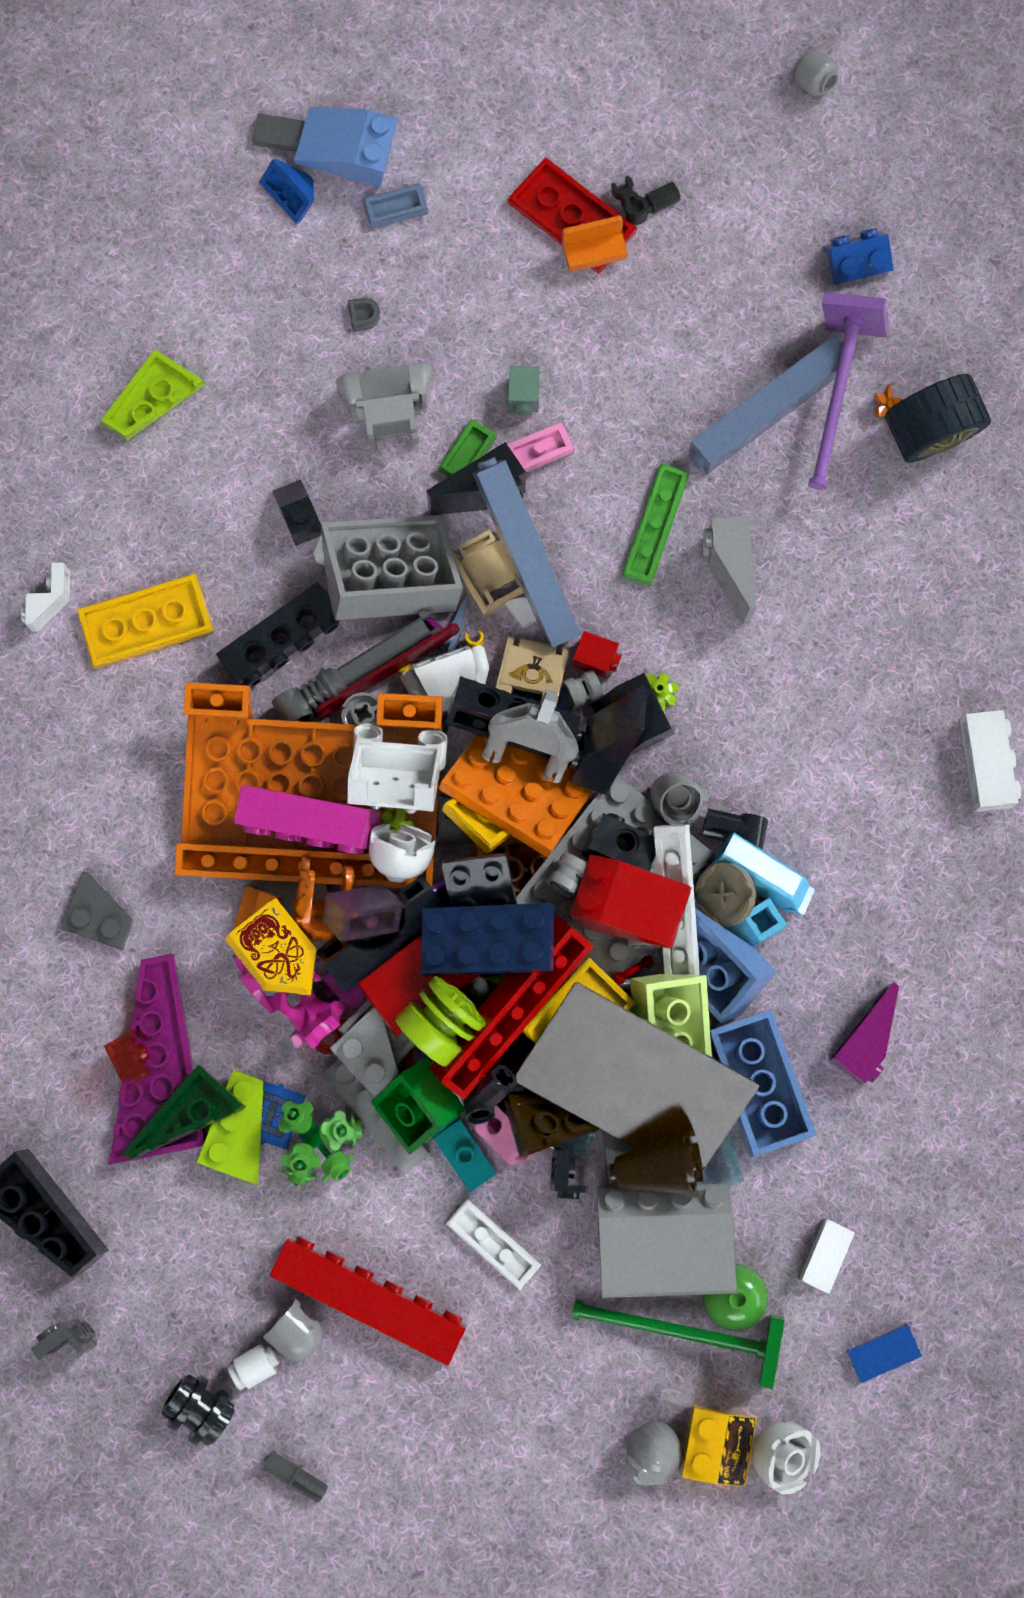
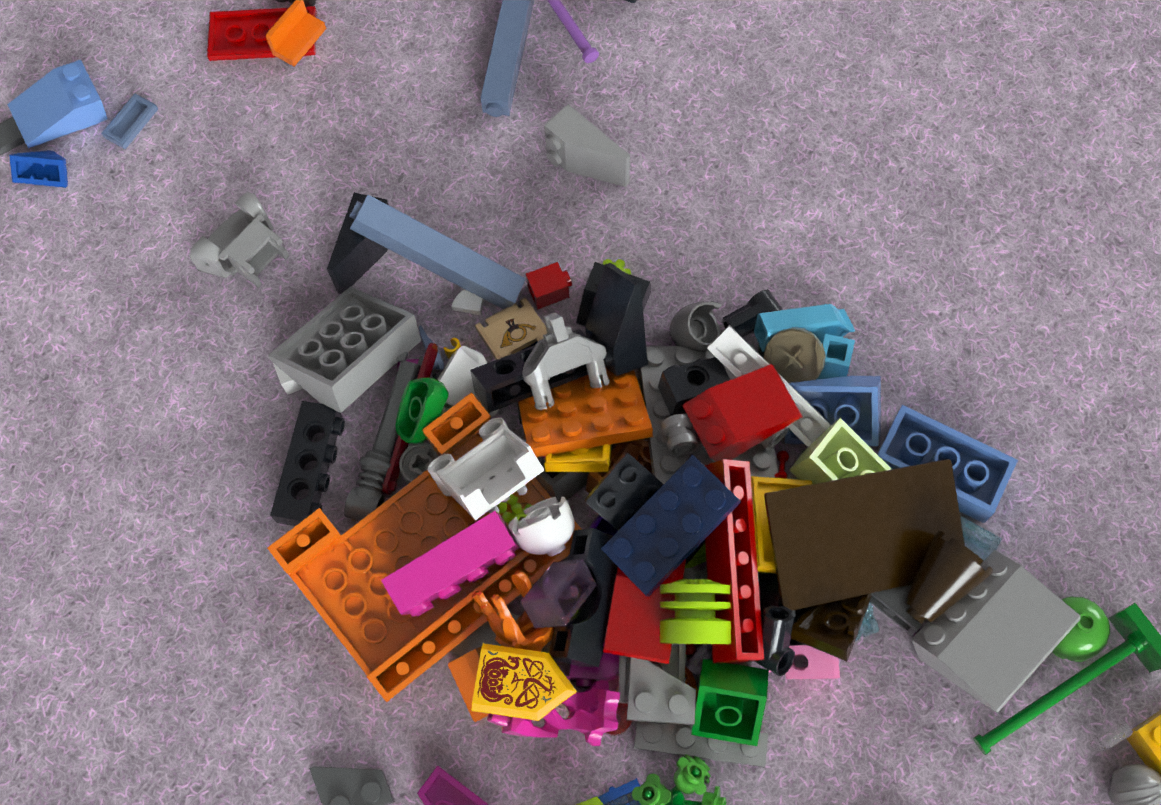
camera: 40 degrees left, 10 degrees down
(44, 606) = (102, 597): white slope -> none
(145, 621) = (192, 543): yellow tile -> none
(150, 395) = (55, 382): lime wing -> none
(298, 512) = (243, 370): black slope -> none
(363, 313) = (169, 205): dark grey tile -> none
(395, 673) = (419, 407): none -> green piece
(465, 1156) = (796, 711): teal plate -> none
(470, 446) = (327, 229): bright green tile -> none
(485, 570) = (419, 293): tan container -> none
(493, 1244) = (877, 755): white tile -> none
(523, 390) = (332, 160): sand green brick -> none
(542, 447) = (383, 181): bright pink plate -> none
(561, 1170) = (877, 654): black bracket -> none
(582, 689) = (565, 307): light grey wheel -> none
(655, 524) = (506, 173): bright green tile -> none
(826, 1255) = (1100, 542): white slope -> none
(868, 1042) = (980, 373): magenta slope -> none
(990, 761) = (869, 133): white brick -> none

